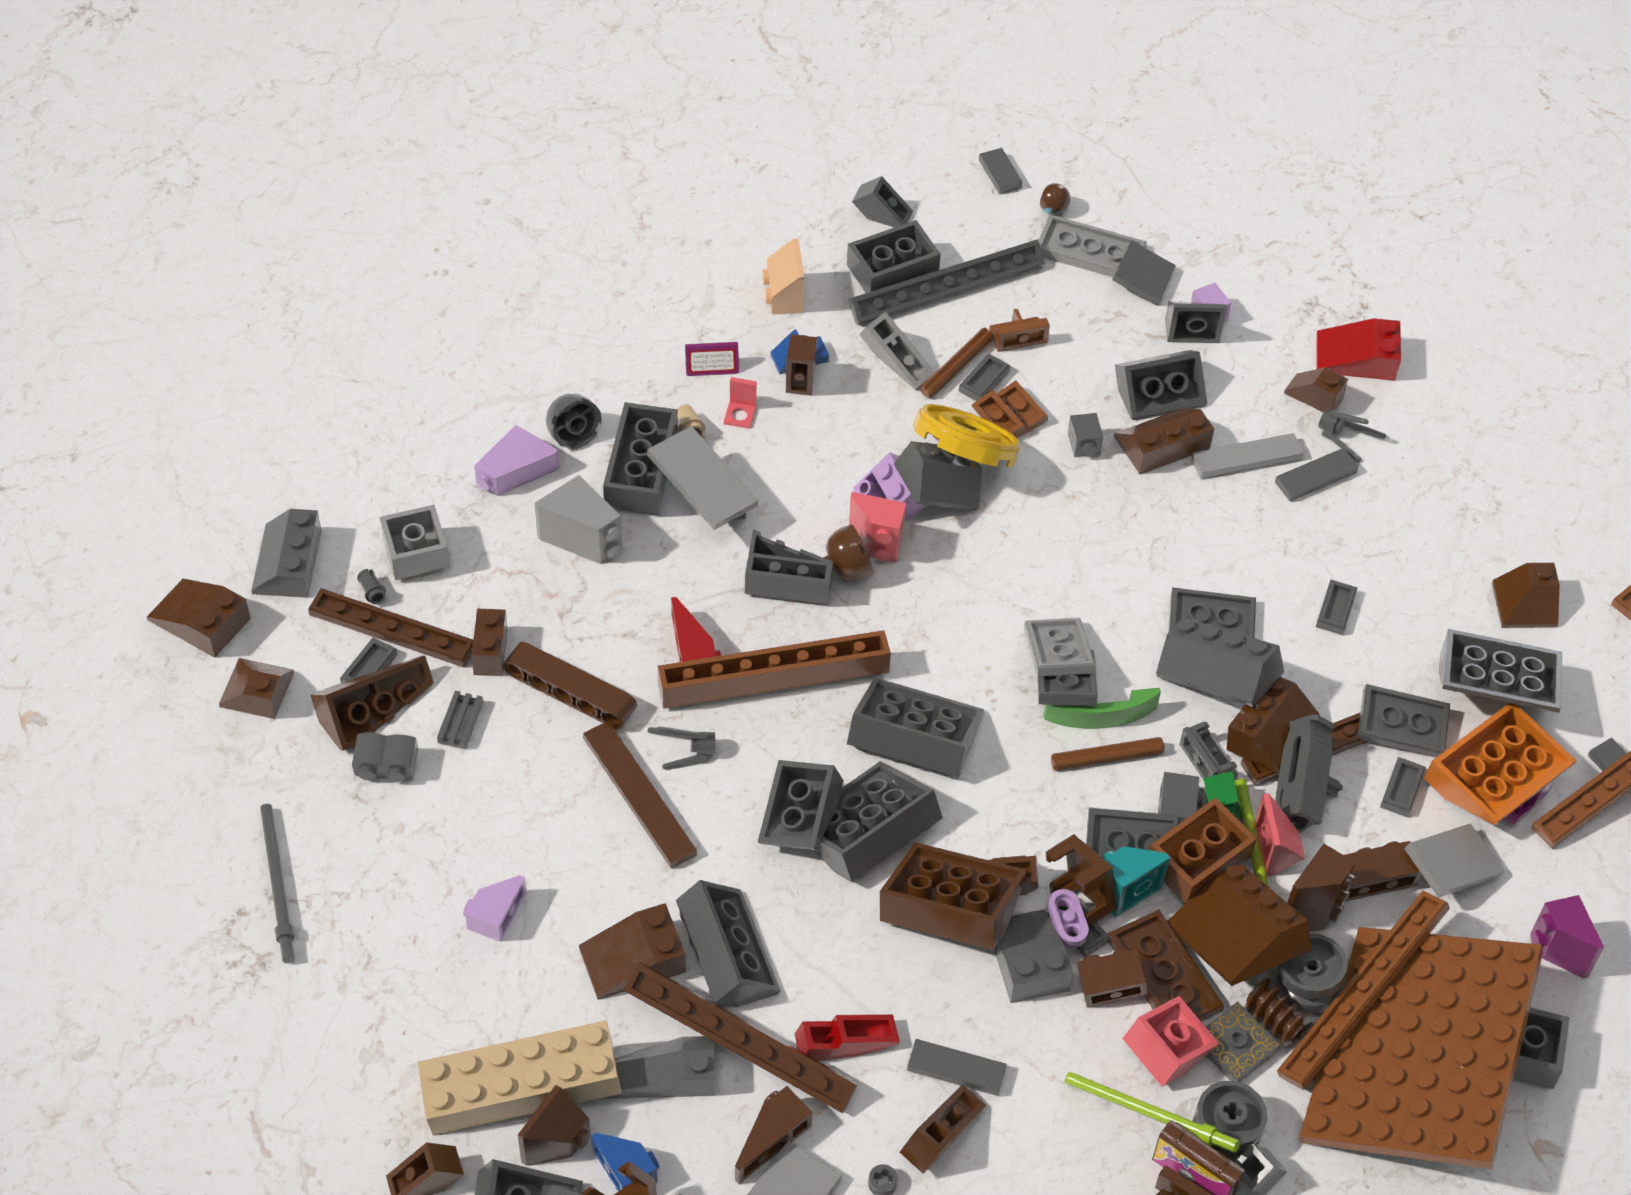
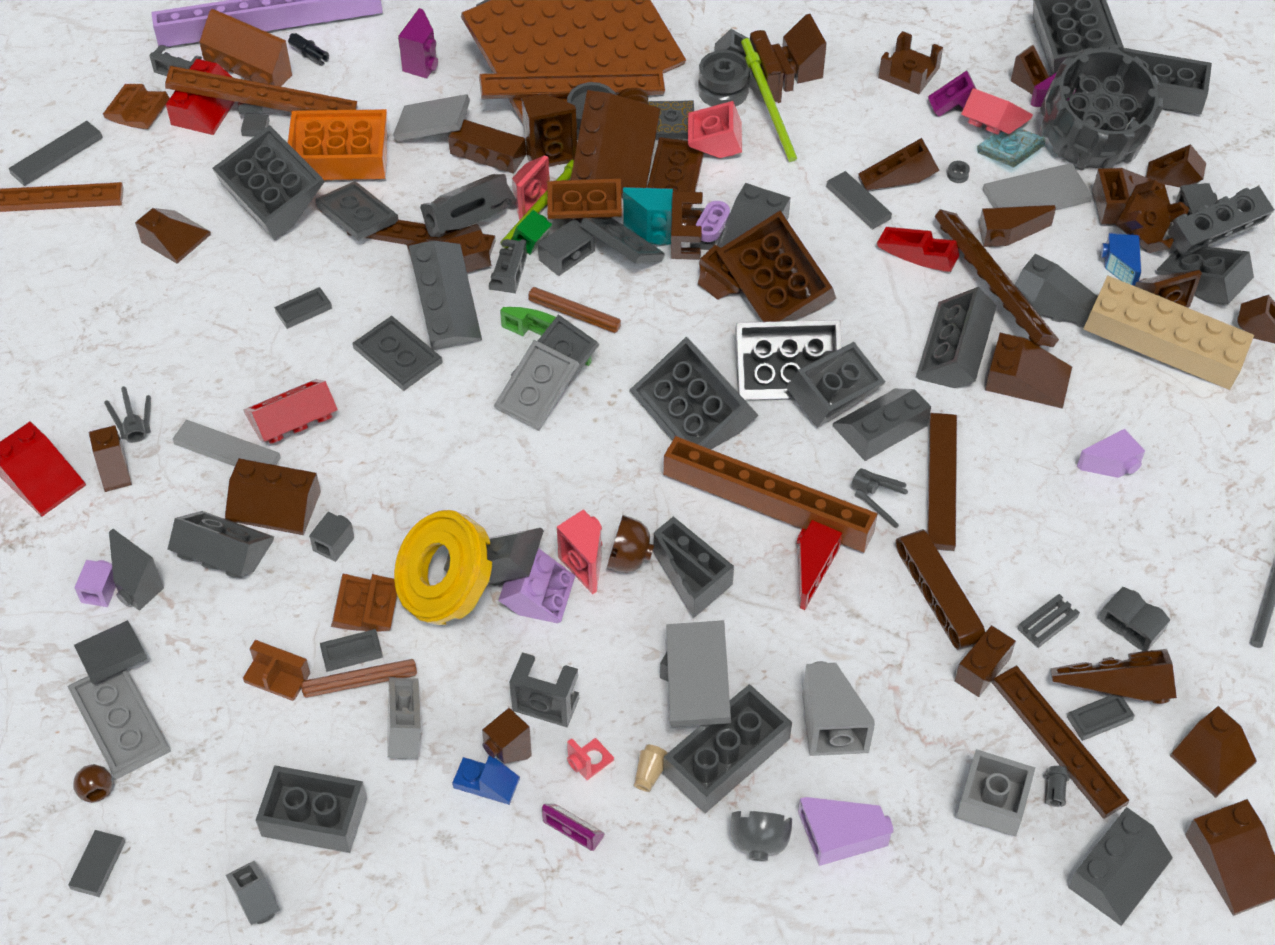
camera: 140 degrees left, 0 degrees up
(733, 812) = (884, 422): none -> dark grey slope
(785, 279) = (431, 853): light nougat slope -> none
(807, 406) = (541, 698): none -> dark grey panel
(946, 281) = (246, 752): dark grey plate -> none
(1112, 977) = (717, 178): reddish brown brick -> none
(1234, 507) = (291, 410): none -> slope
(1316, 474) = (195, 402): dark grey tile -> none
(1402, 787) = (403, 183): dark grey tile -> none

